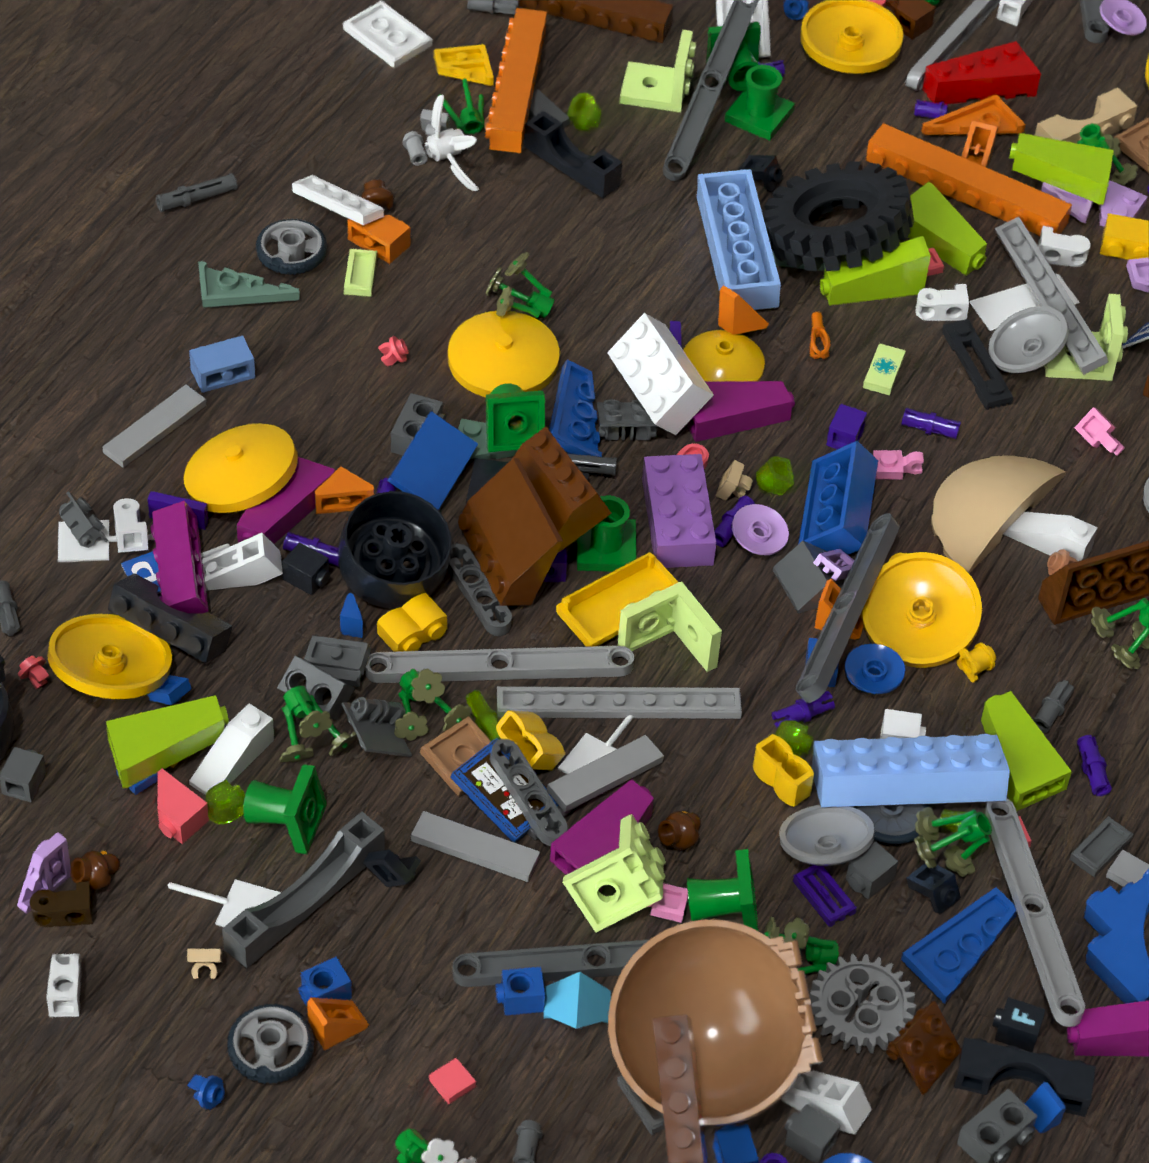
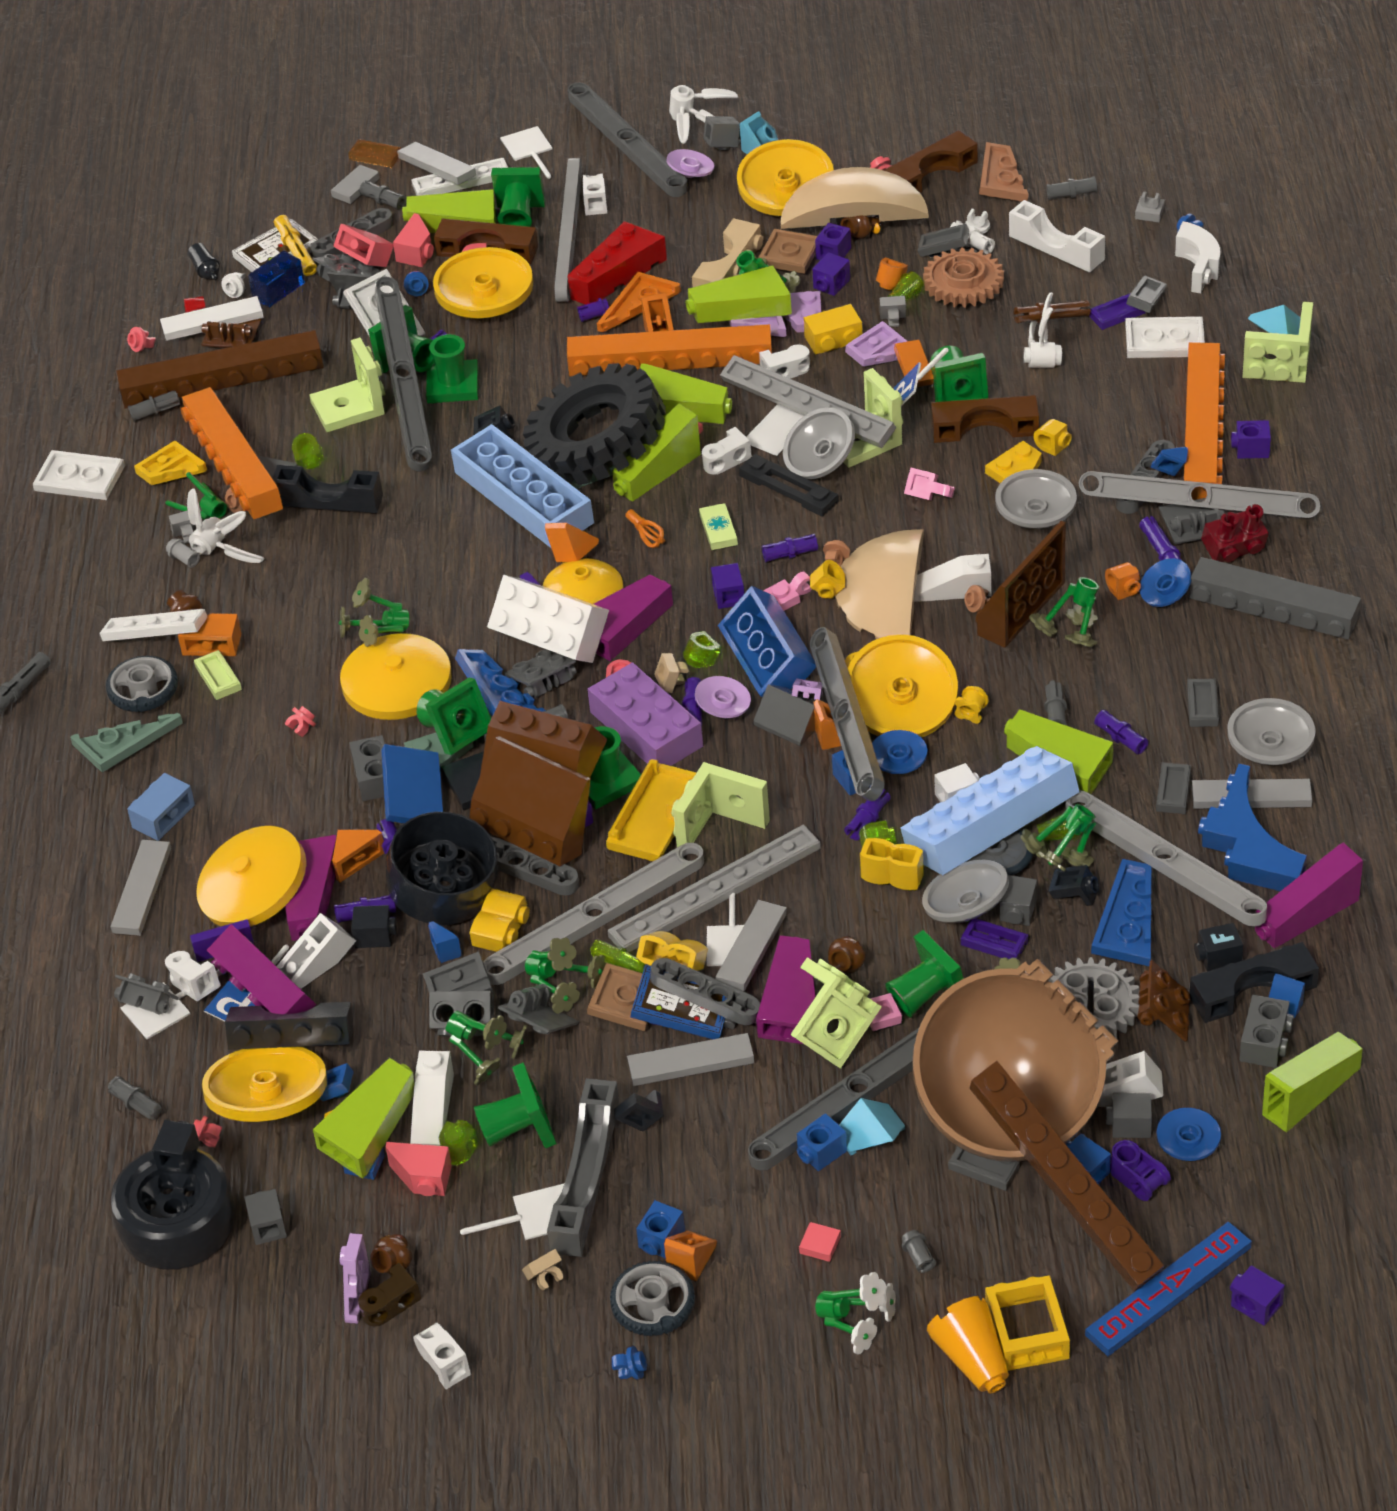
camera: 25 degrees left, 5 degrees down
(938, 472) = (827, 579): none -> yellow plate
(966, 451) = (836, 551): none -> nougat plate

